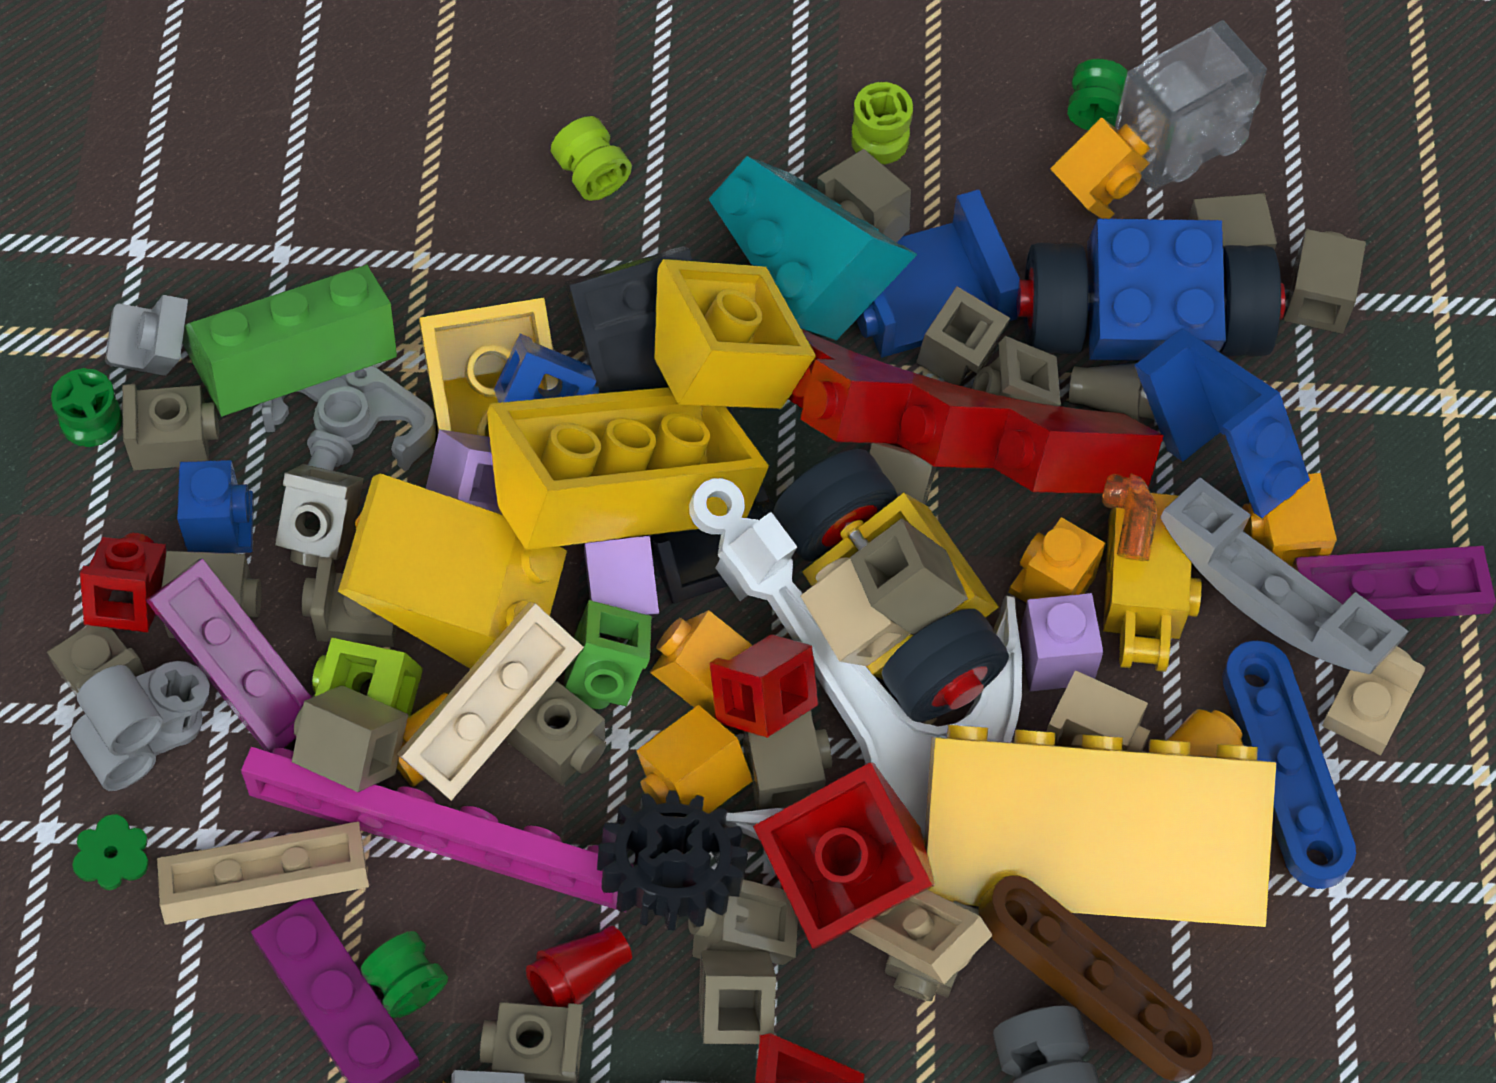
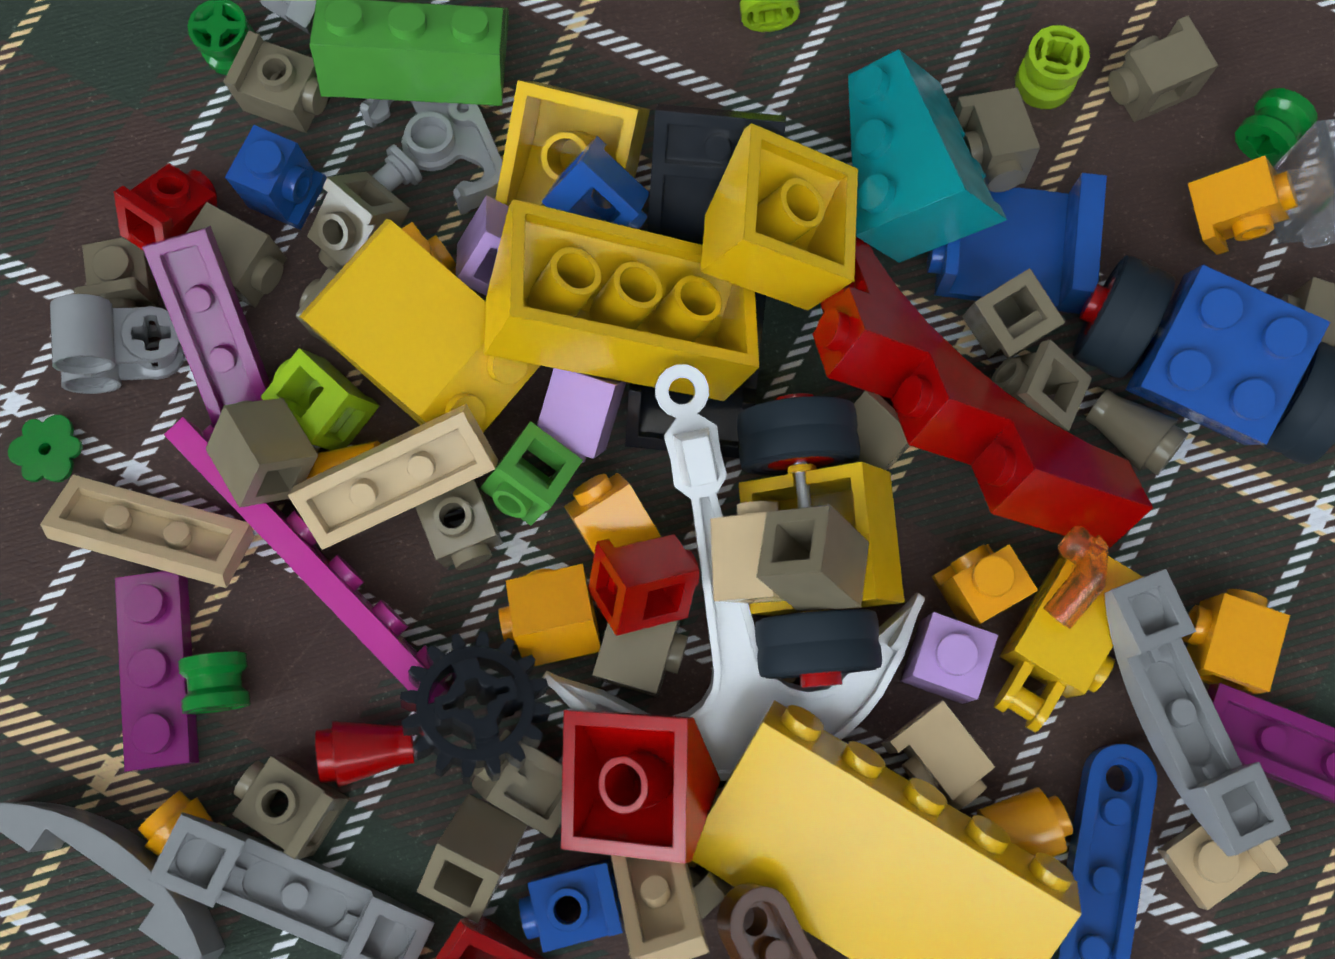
camera: 35 degrees right, 15 degrees up
(846, 1028) = (599, 901): none -> blue brick
(978, 88) = (1162, 71): none -> dark tan brick
(1206, 394) = (1210, 475): blue panel -> none

